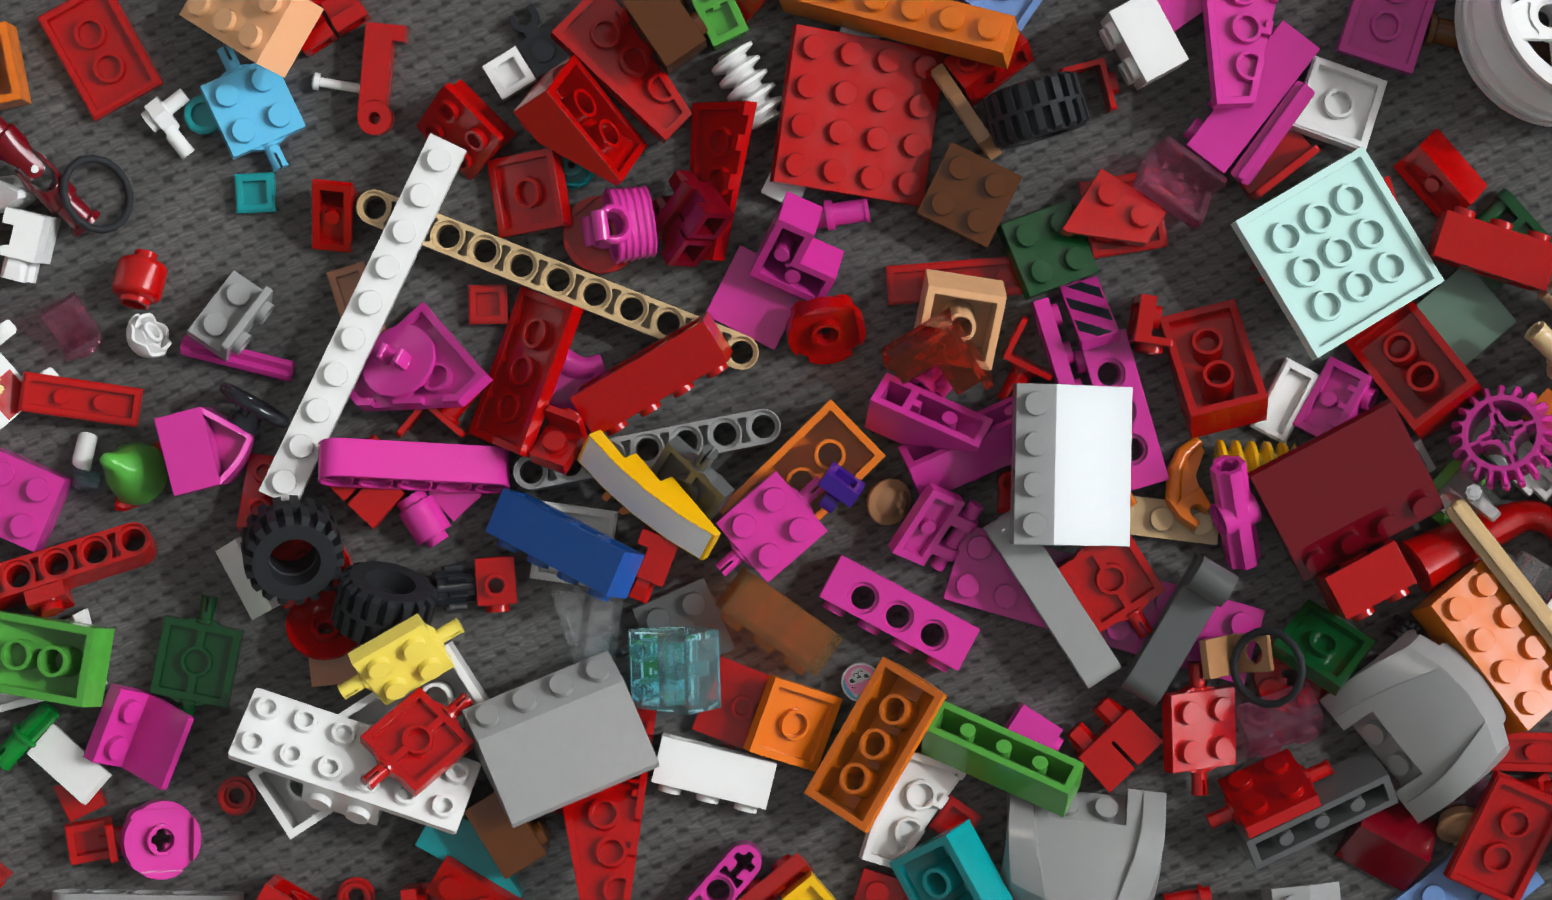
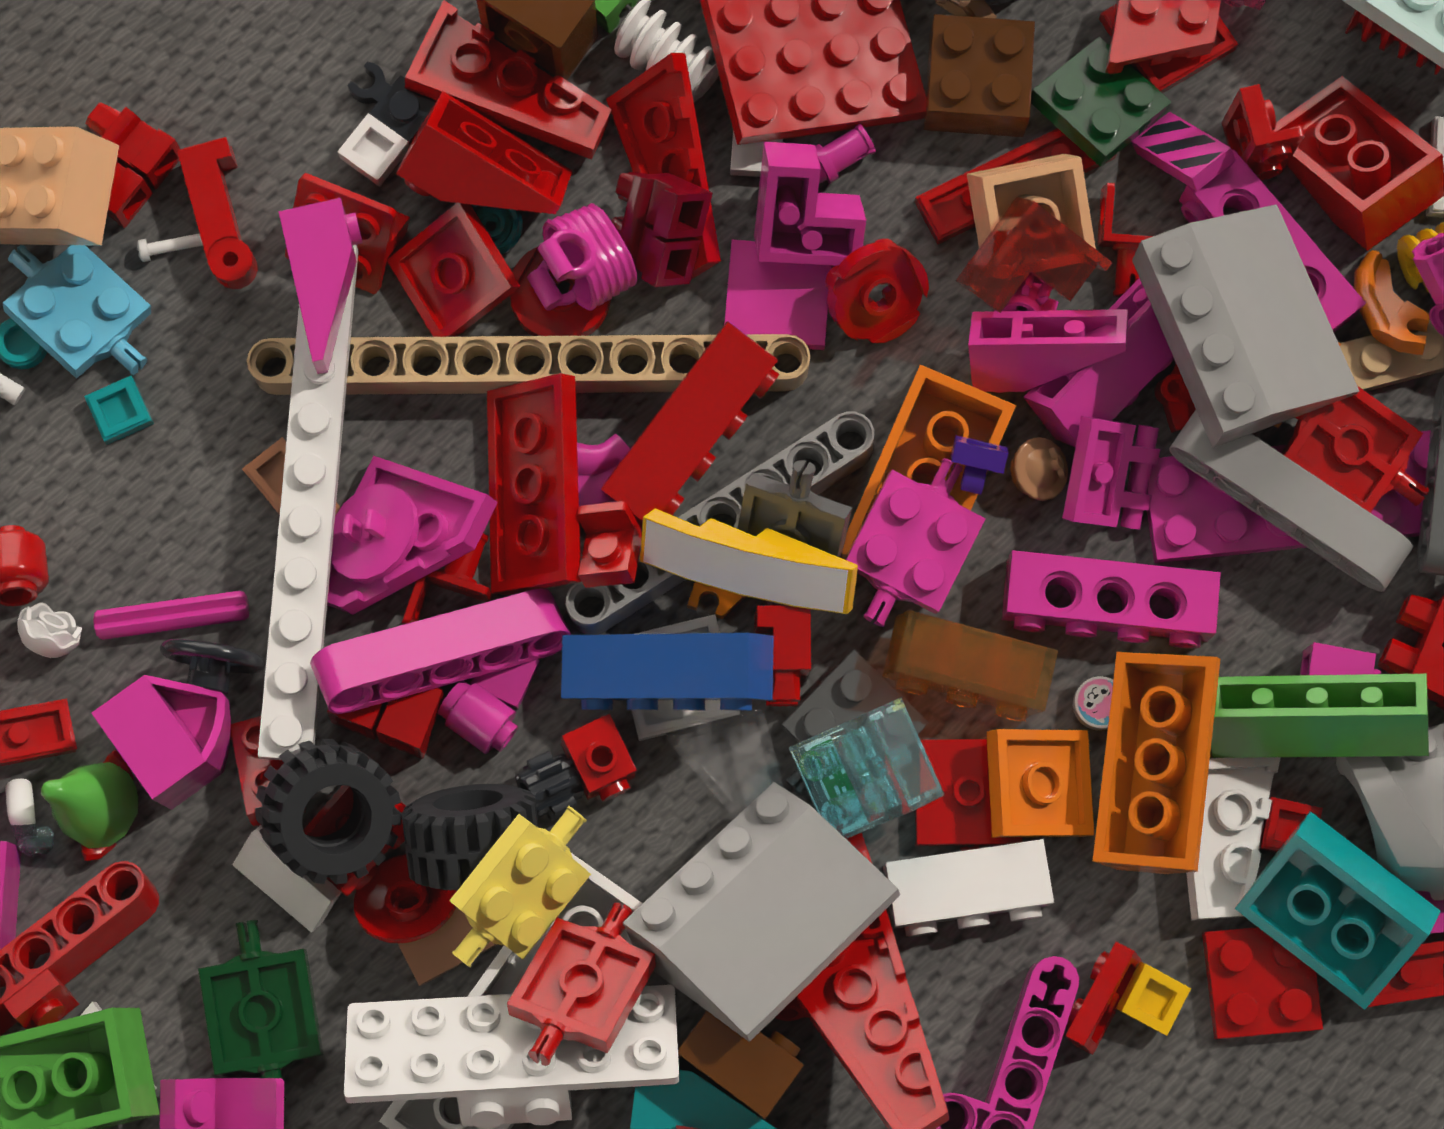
camera: 25 degrees left, 10 degrees down
(231, 315) = (144, 564): light grey bracket -> none
(333, 215) = (223, 391): red slope -> none
(432, 163) = (322, 265): none -> dark pink slope
(488, 304) = (455, 430): red tile -> none
(1058, 353) = (1138, 187): dark pink plate -> none

